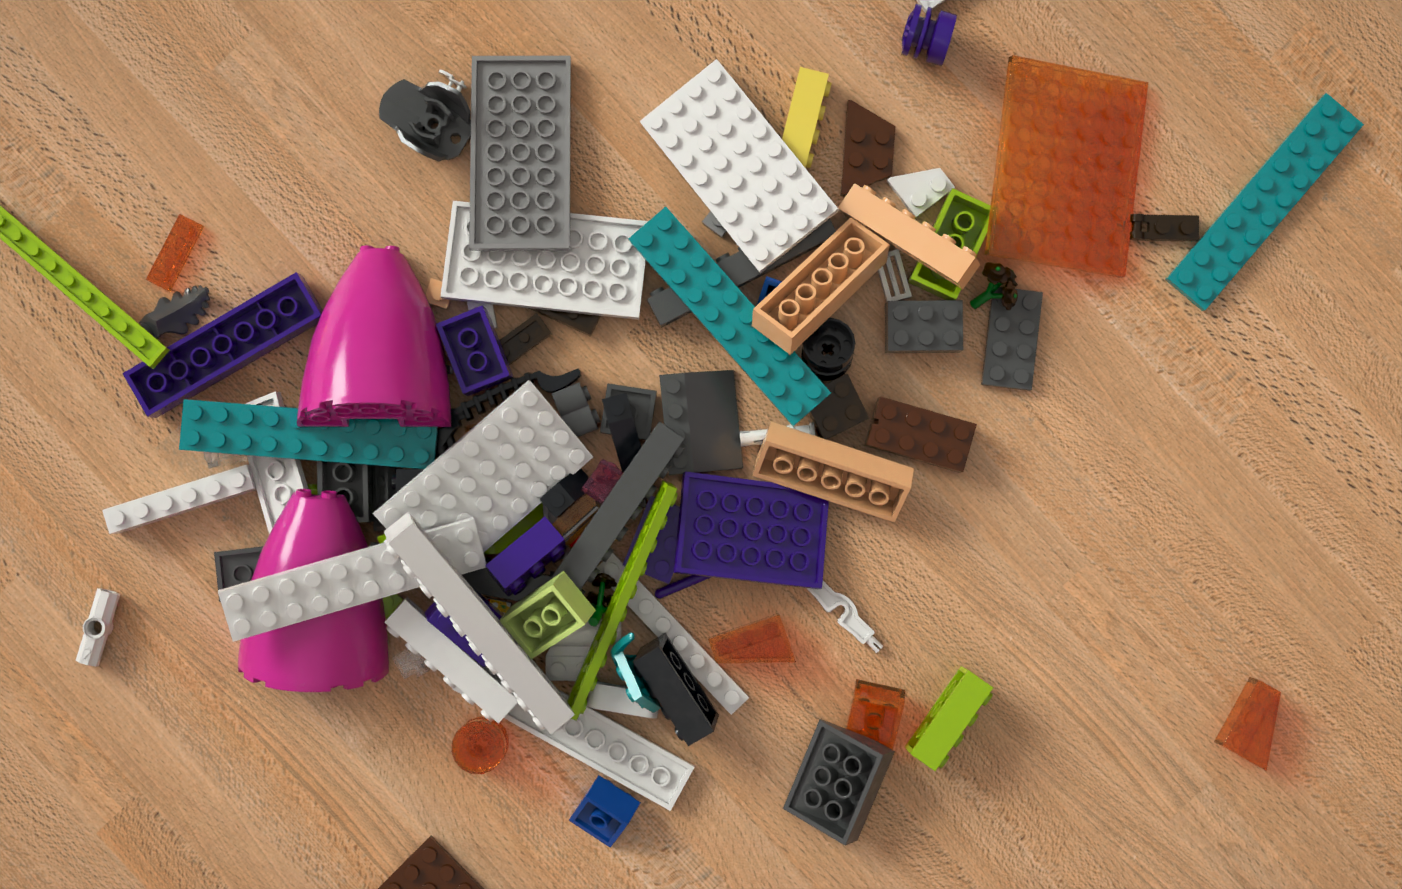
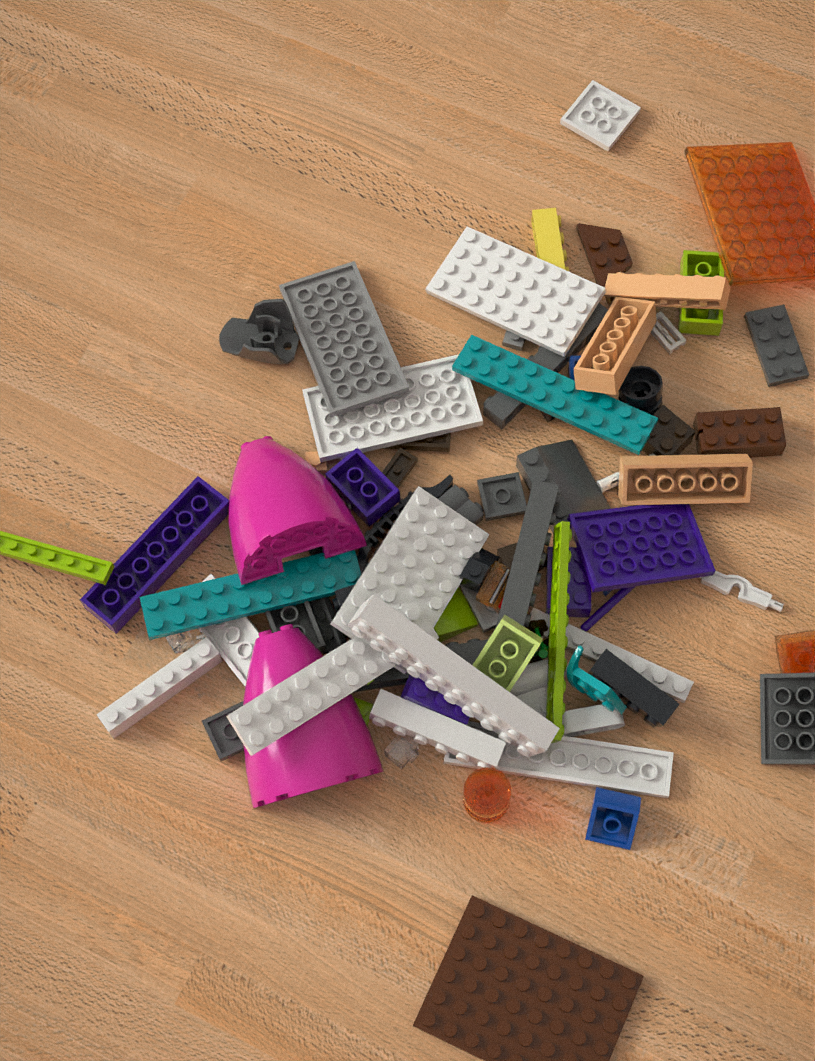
camera: 15 degrees left, 20 degrees down
(93, 642) = (121, 832): white piece -> none
(174, 252) = (90, 503): clear orange plate -> none
(174, 314) = (111, 544): dark grey plant -> none
(527, 557) = (469, 620): dark purple brick -> none
(602, 481) = (505, 545): clear pink bracket -> none
(622, 428) = (503, 503): black slope -> none
(753, 643) = (679, 633): clear orange wedge -> none
(921, 189) = (661, 262): white wing -> none
(924, 326) = (706, 356): dark grey brick -> none
(928, 34) = (618, 158): dark purple wheel -> none
(998, 275) = (750, 300): dark brown plant -> none

